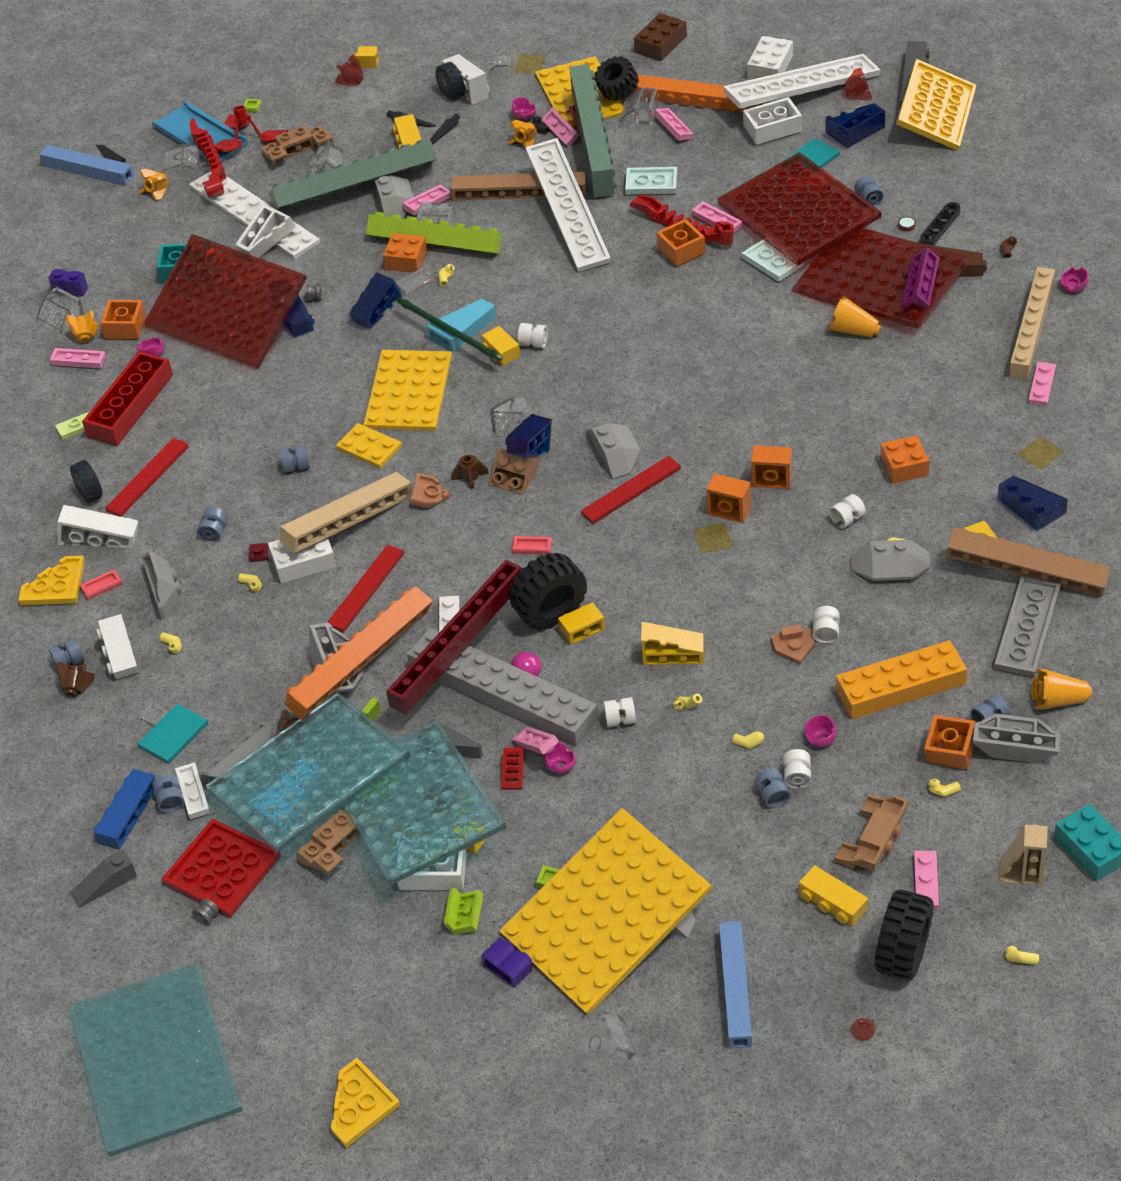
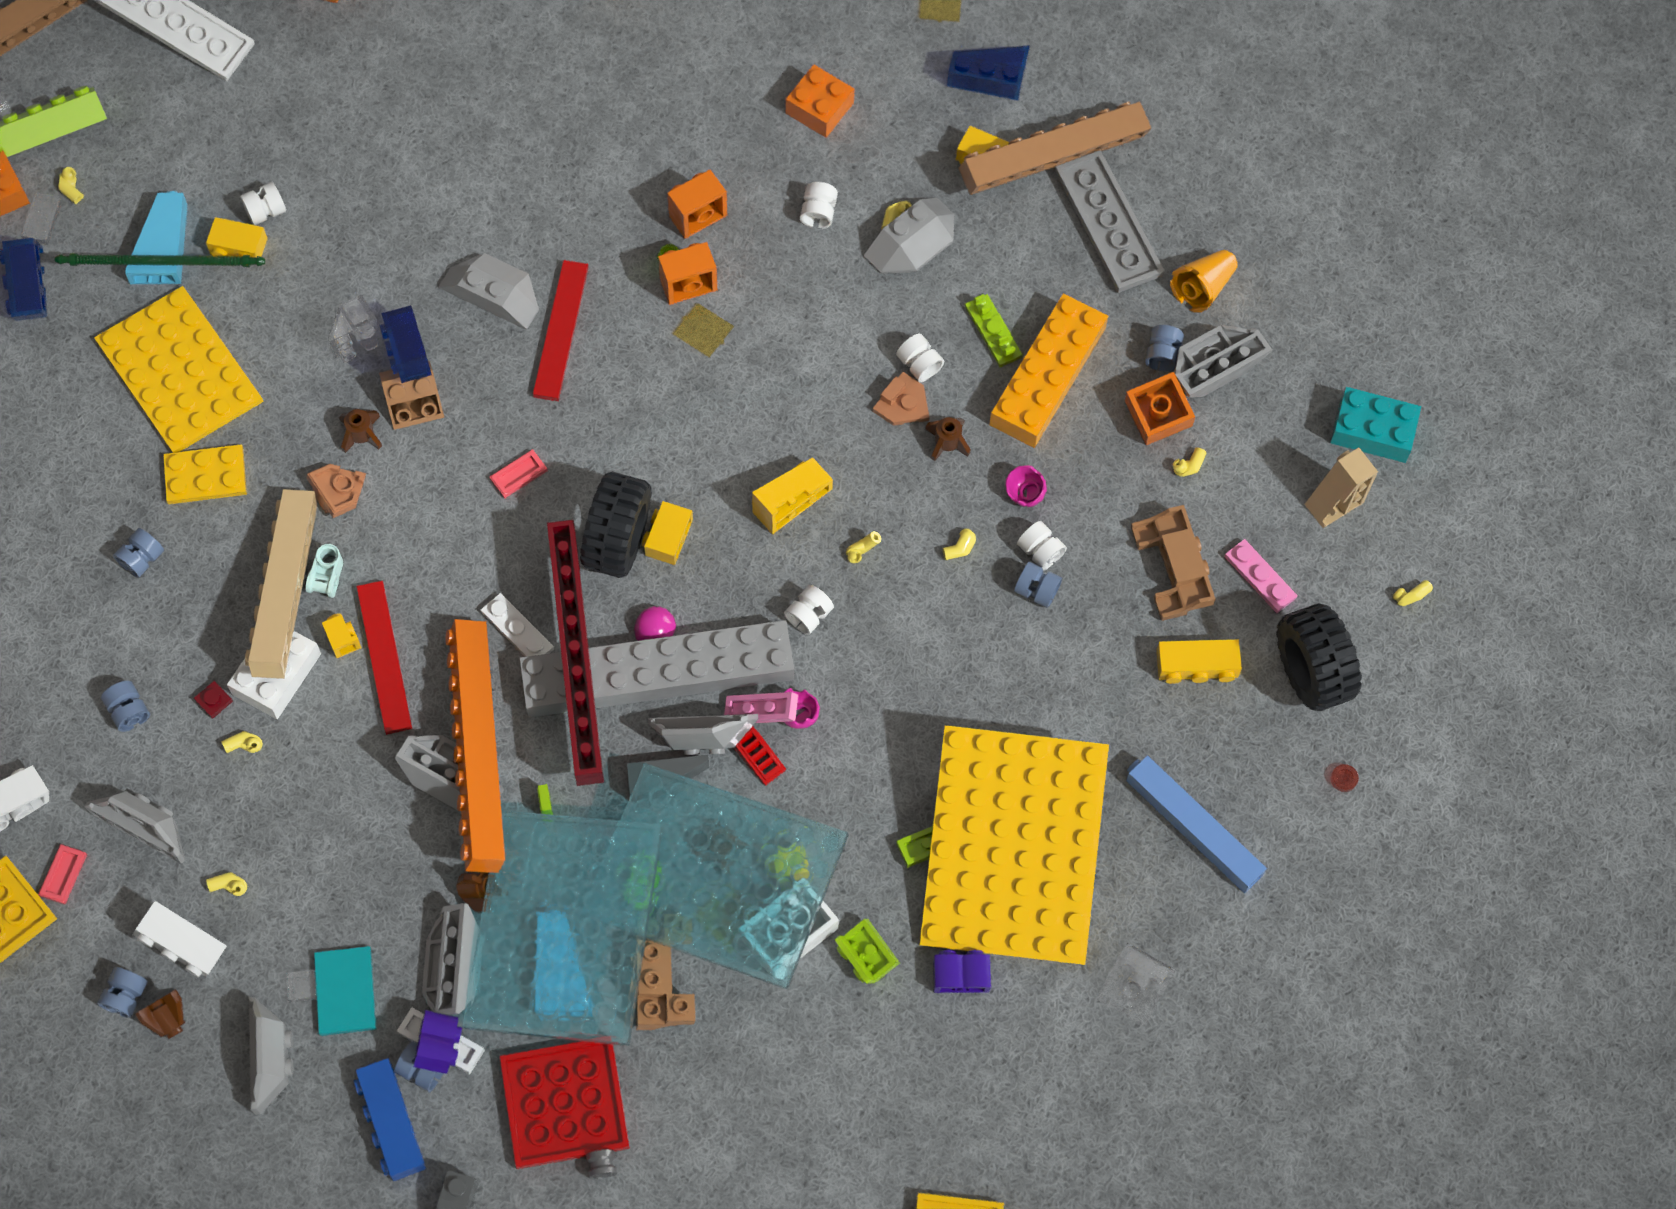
camera: 50 degrees left, 20 degrees up
(98, 732) = (267, 1056): none -> light grey wedge
(183, 780) = (436, 1042): none -> dark purple brick
(352, 561) = (341, 635): none -> yellow brick
(379, 526) = (325, 576): none -> light aqua piece
(490, 731) = (703, 732): none -> light grey wedge
(800, 676) = (948, 436): none -> reddish brown brick
(891, 637) = (993, 330): none -> lime plate

